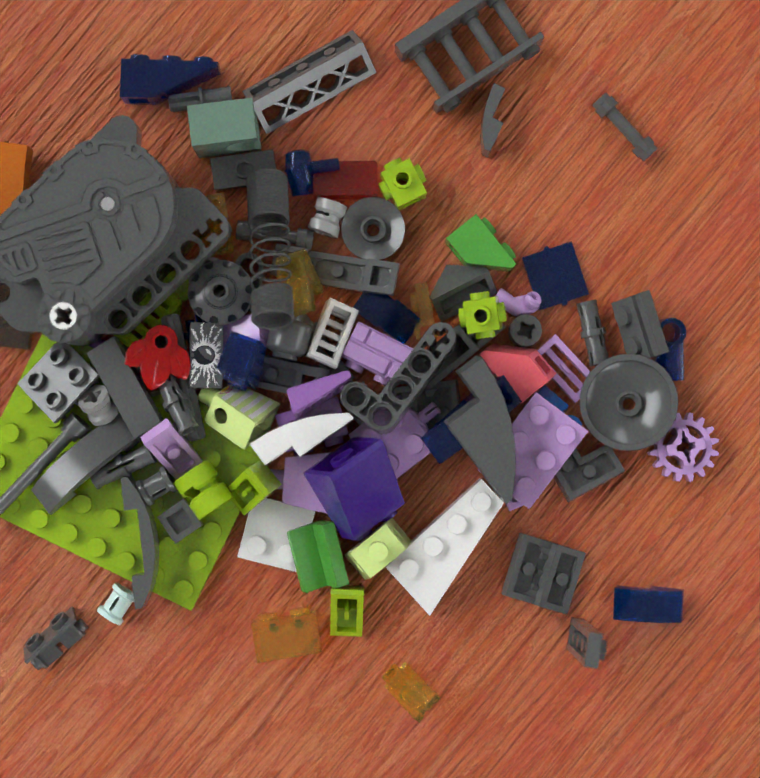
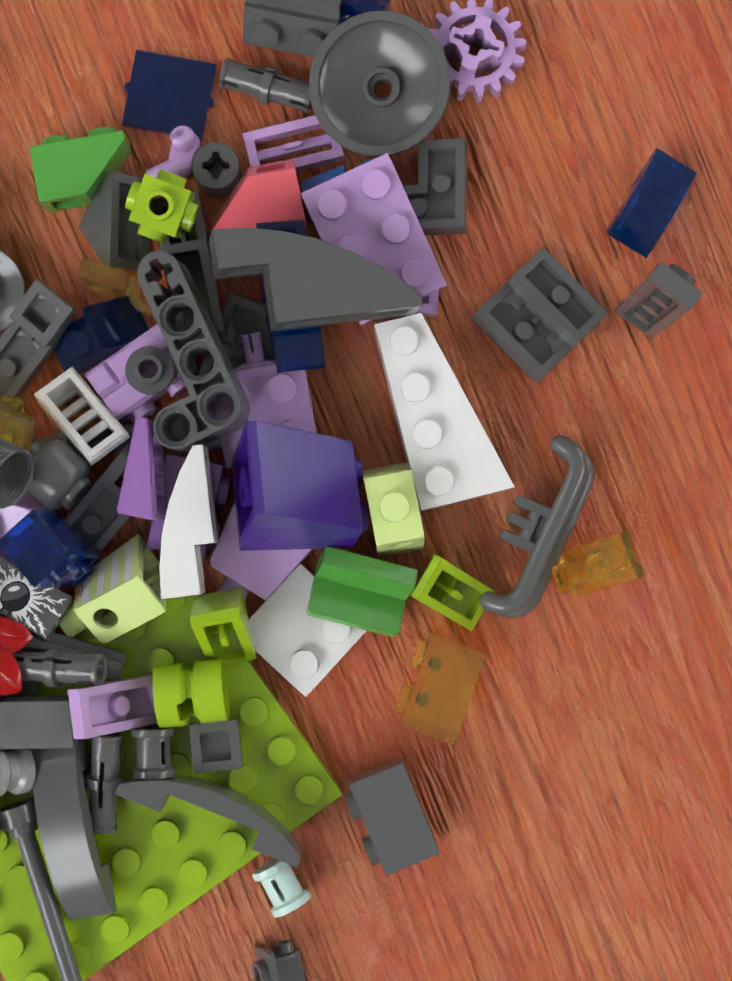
camera: 55 degrees left, 0 degrees up
(194, 648) = (392, 817): none -> dark grey brick
(385, 370) = (163, 376): none -> dark grey plate
(412, 647) = (544, 533): none -> dark grey piece

